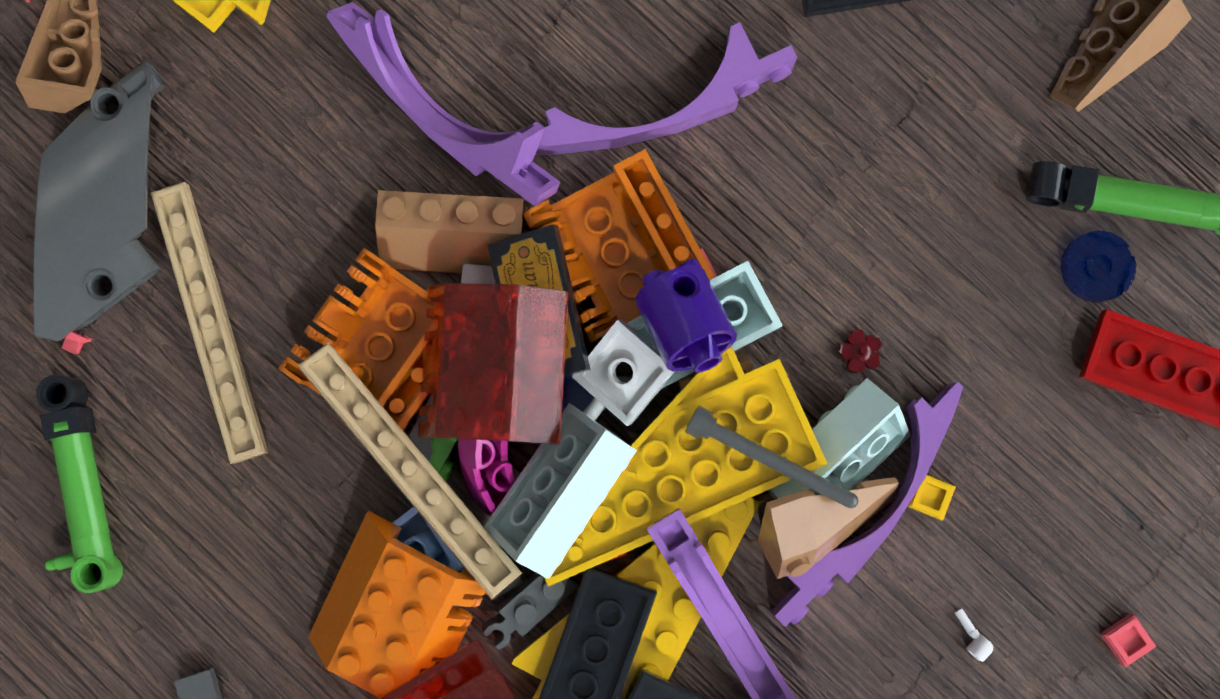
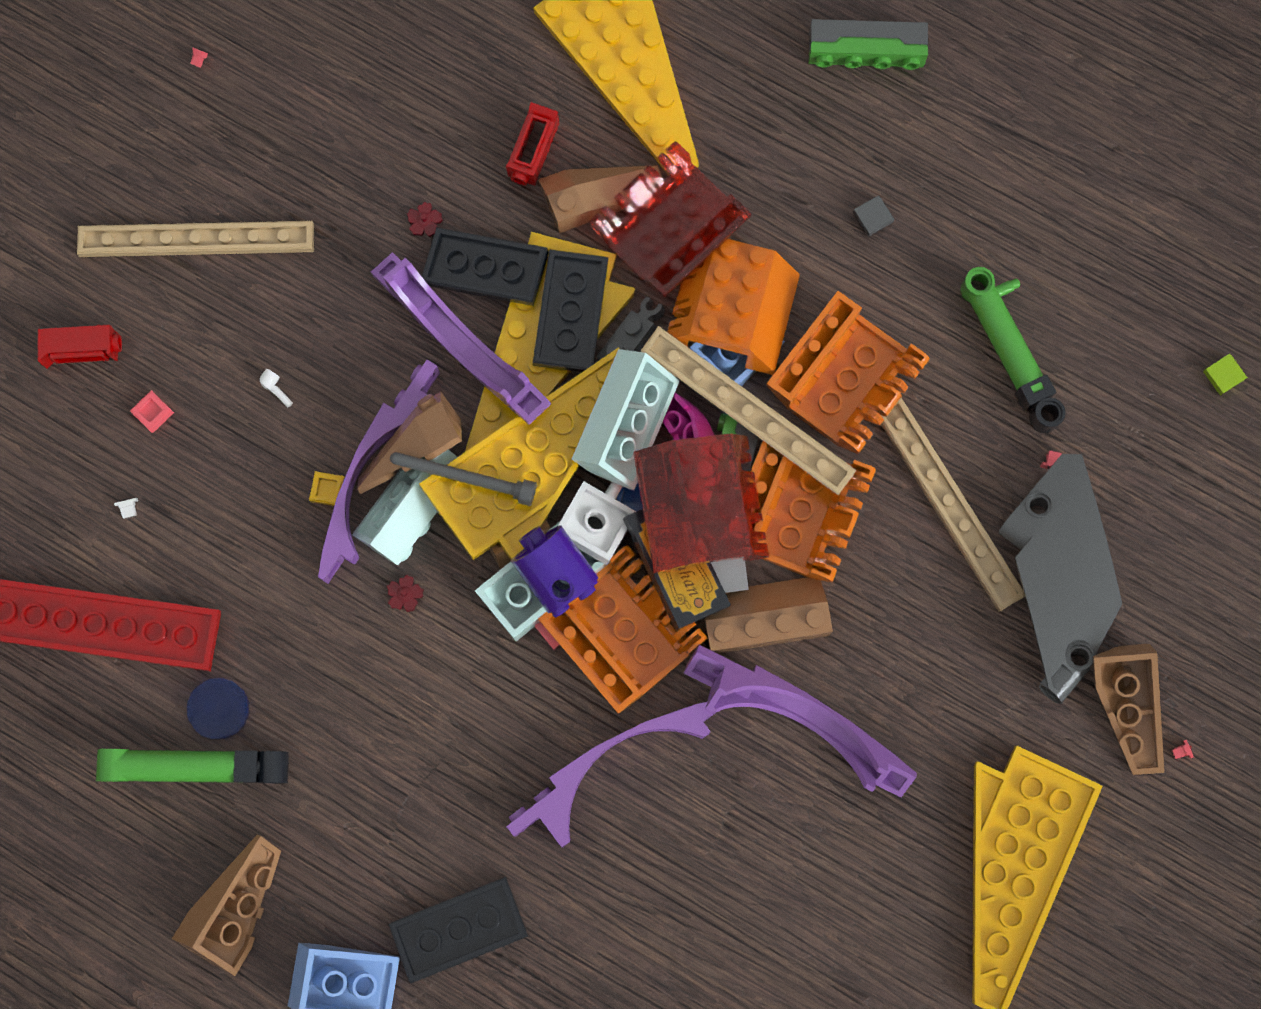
camera: 165 degrees right, 5 degrees down
(282, 494) = (844, 374): none -> orange slope
(1172, 526) = (127, 507): none -> white piece

